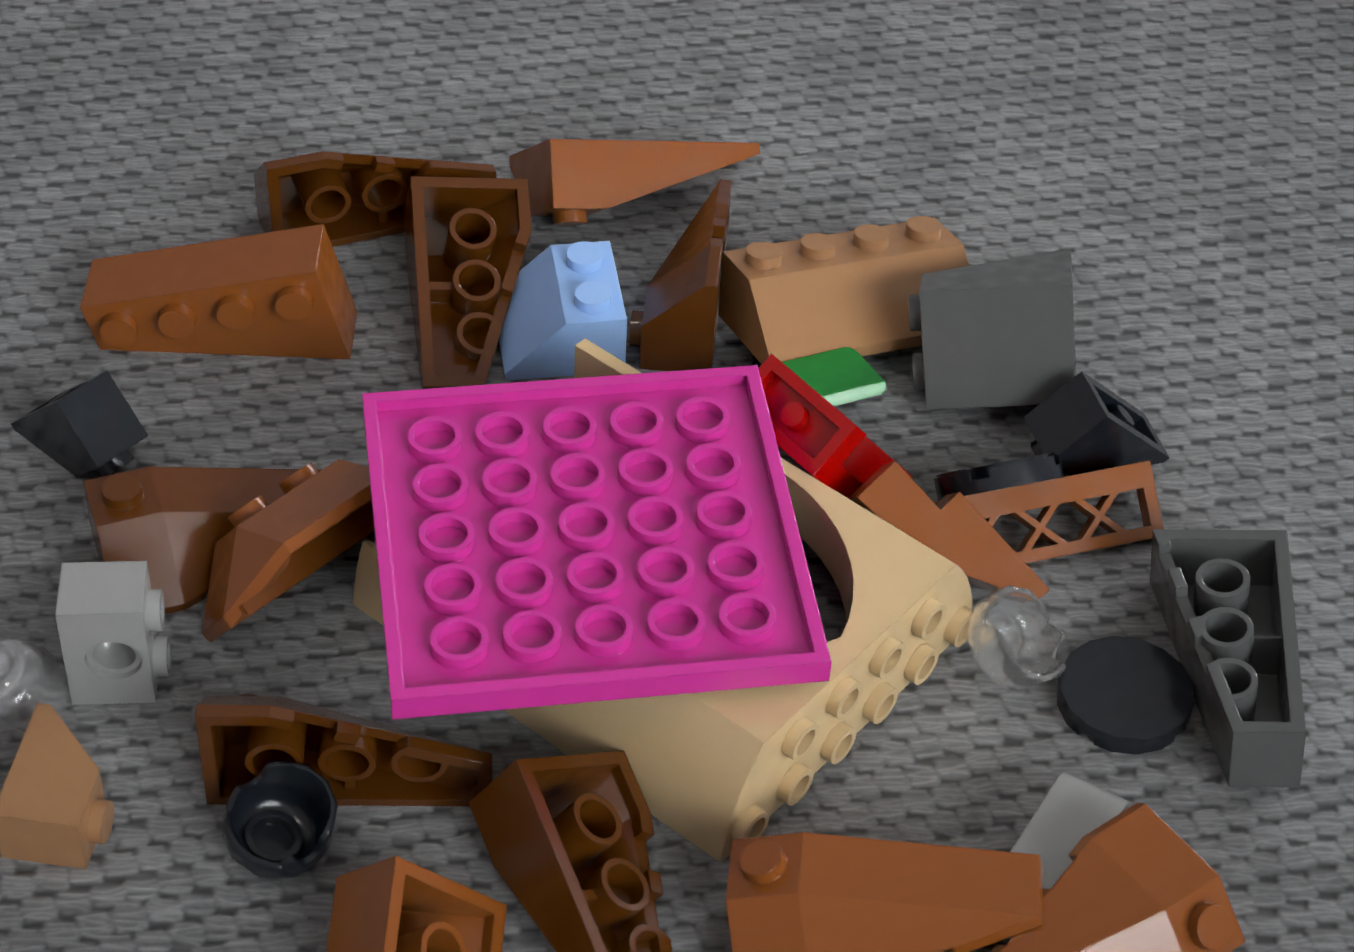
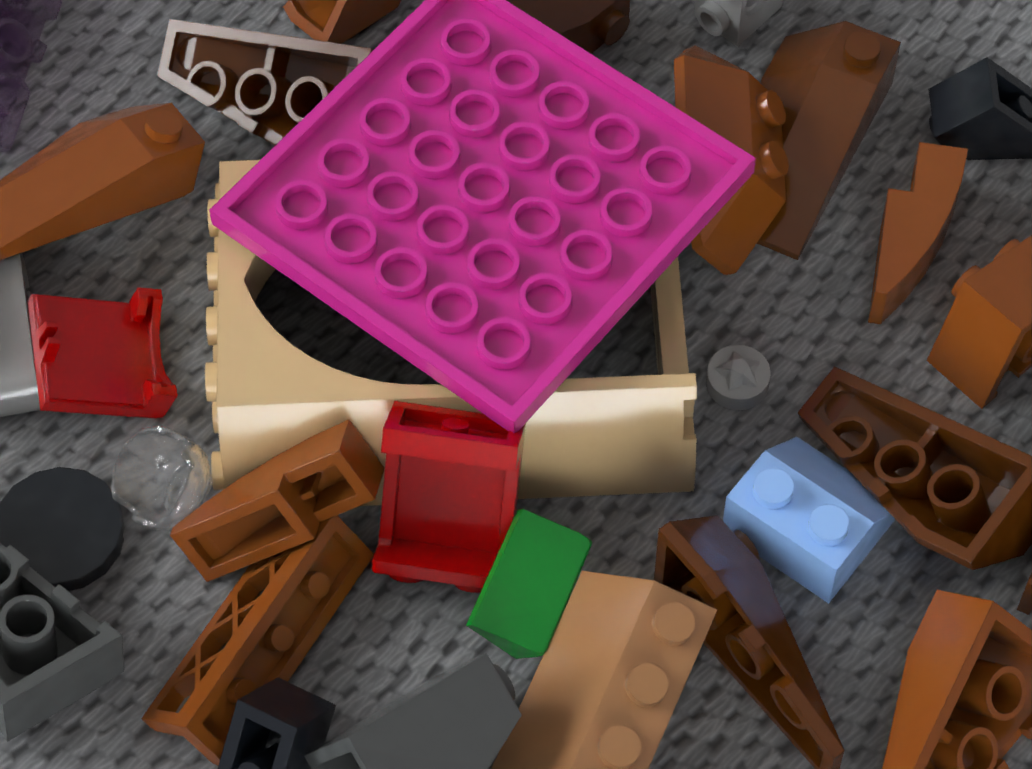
camera: 140 degrees right, 15 degrees up
(249, 405) = (915, 226): none -> dark orange slope
(981, 771) = (100, 355): none -> red piece
(999, 475) = (297, 613): black tile -> none

